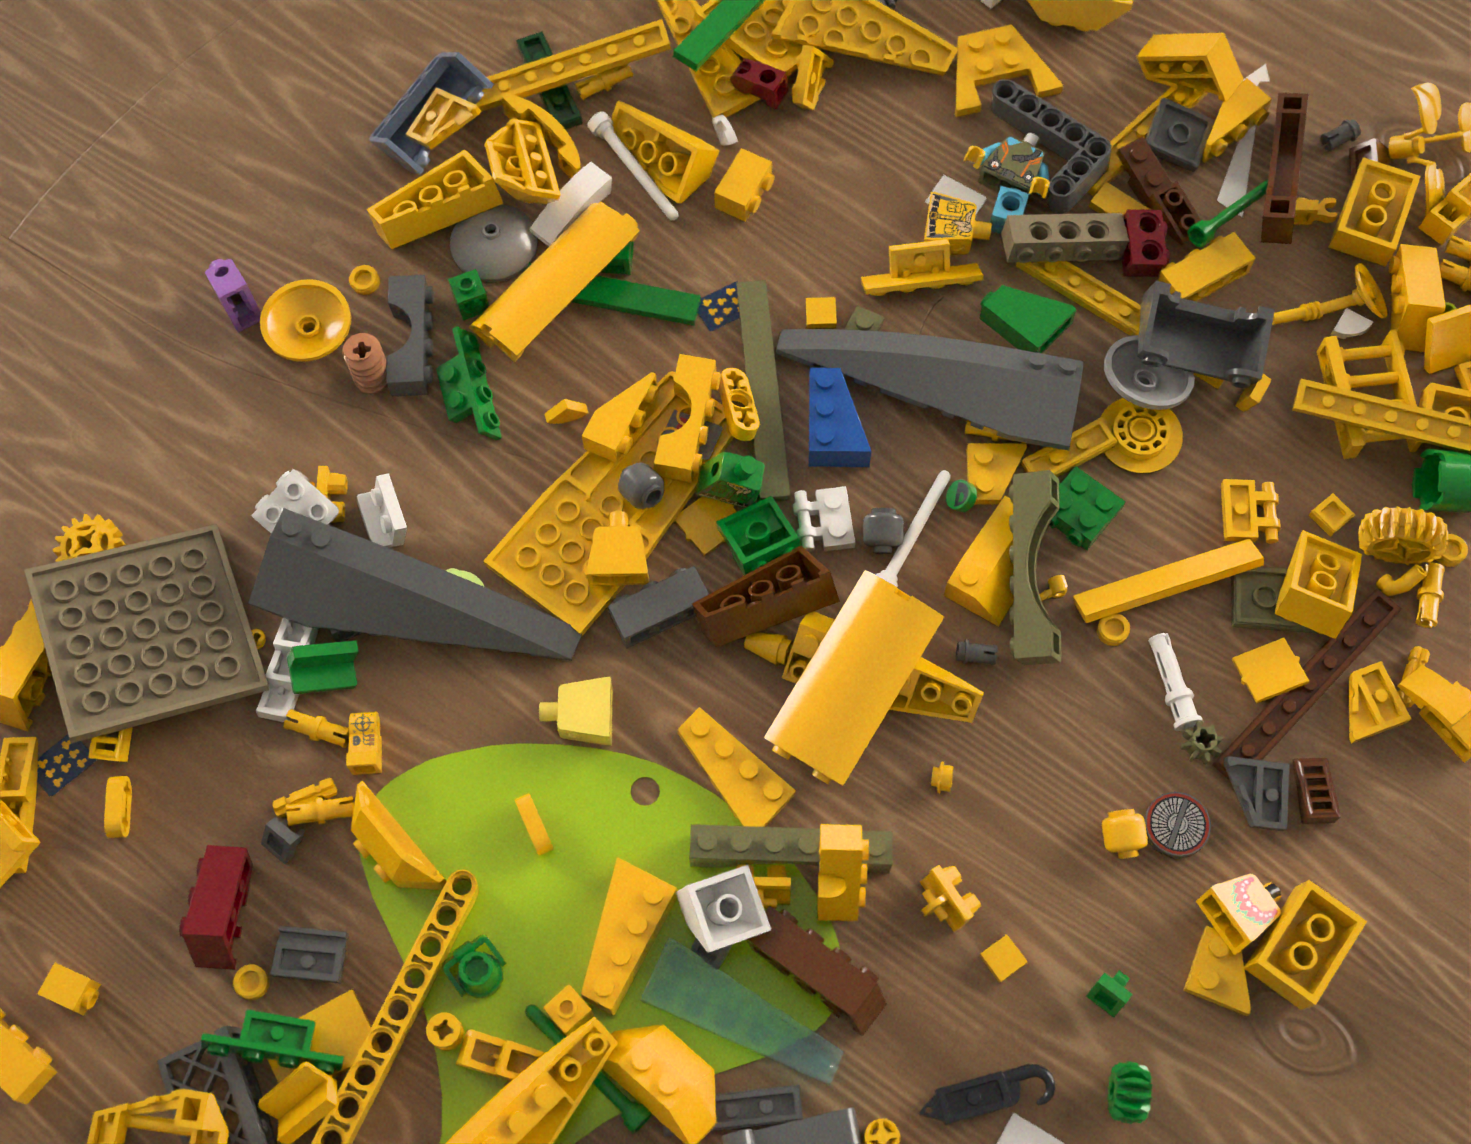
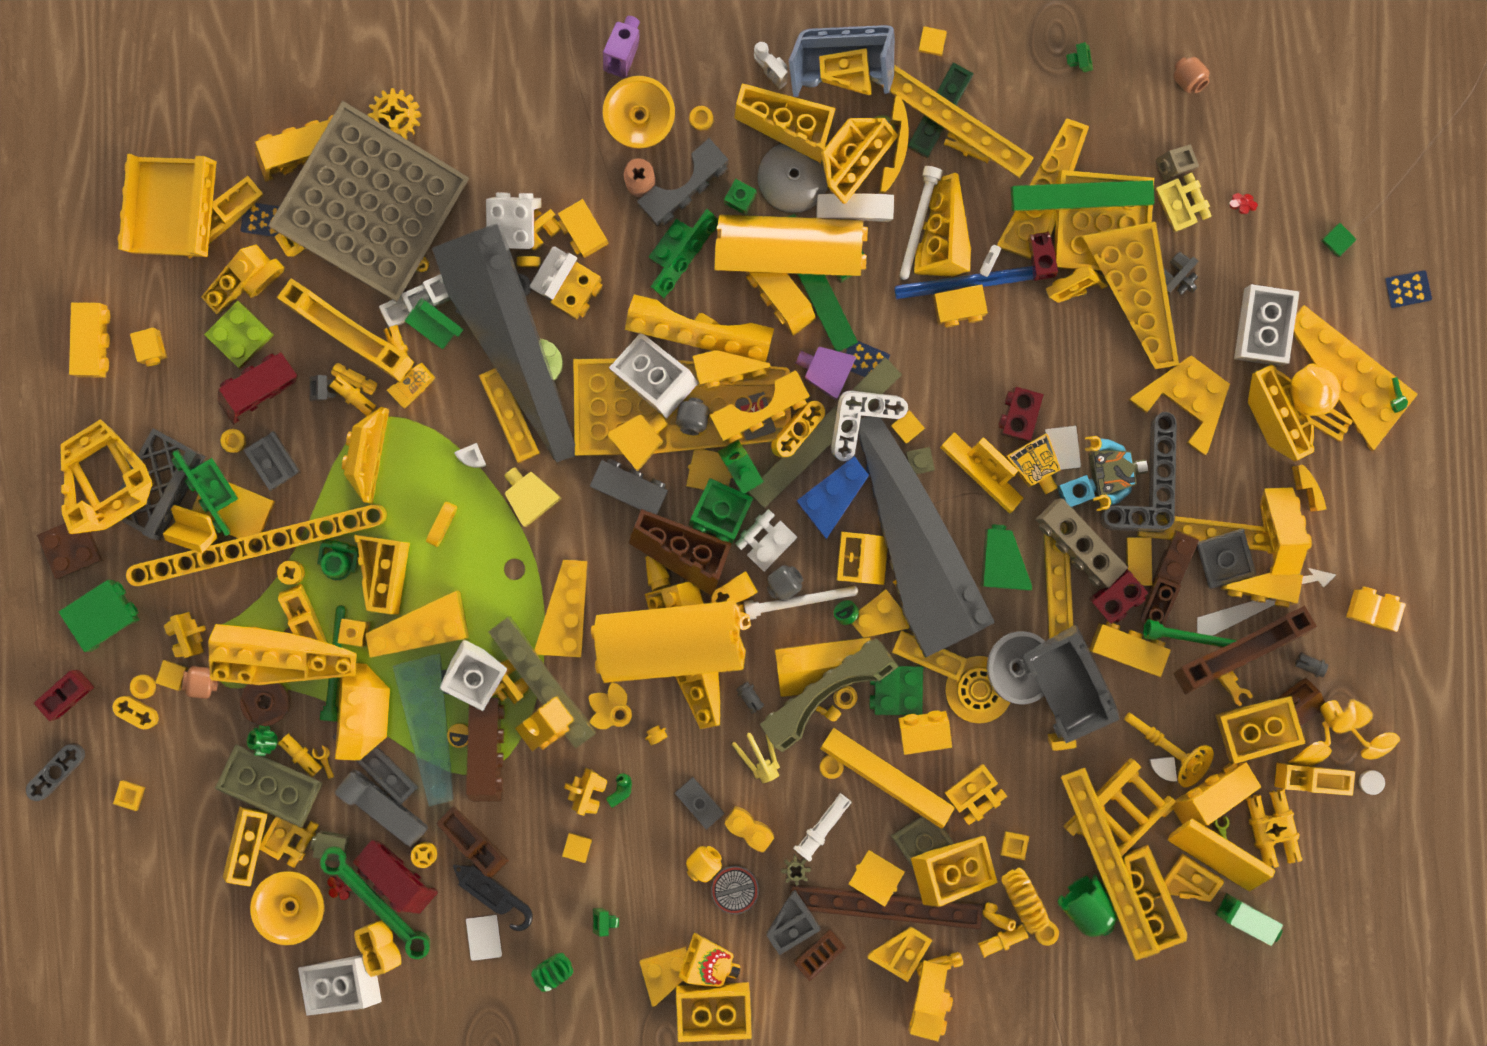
camera: 50 degrees right, 20 degrees up
(88, 841) = (233, 277): none -> yellow slope
(149, 883) = (239, 334): none -> lime plate
(194, 777) = (345, 330): none -> yellow arch
(352, 525) = (528, 261): none -> yellow tile
(365, 455) = (583, 229): none -> yellow brick
(375, 176) = (773, 67): none -> white plate
(420, 507) = (577, 291): none -> yellow brick
(481, 44) = (932, 41): none -> yellow tile
(482, 670) = (509, 416): none -> yellow tile
(491, 741) = (471, 456): none -> white tile
(522, 448) = (655, 320): none -> yellow arch
(529, 922) = (383, 572): none -> yellow wedge
(568, 490) = (654, 375): none -> white slope
(595, 323) = (785, 298): none -> yellow wedge
(704, 336) = (826, 369): none -> medium lavender torso
(706, 196) = (960, 282): none -> blue axle
(767, 343) = (854, 414): none -> white beam
(777, 989) = (458, 735): none -> yellow tile
(848, 576) = (736, 589): none -> yellow piece
(870, 804) = (606, 706): none -> yellow plate
(899, 202) = (1027, 416): none -> dark red brick
(908, 1070) = (472, 842): none -> reddish brown slope
(915, 442) = (861, 558): none -> yellow slope
(976, 859) = (623, 790): none -> green arm
(1052, 554) = (848, 704): none -> yellow plate
(1052, 790) = (699, 803): none -> dark grey plate
(1066, 692) = (766, 770): none -> light yellow plant
(1112, 756) = (743, 825): none -> yellow brick
(1147, 508) = (925, 732): none -> yellow brick
(1162, 22) = (1305, 480): none -> yellow slope
(1326, 49) = (1375, 609): none -> yellow brick

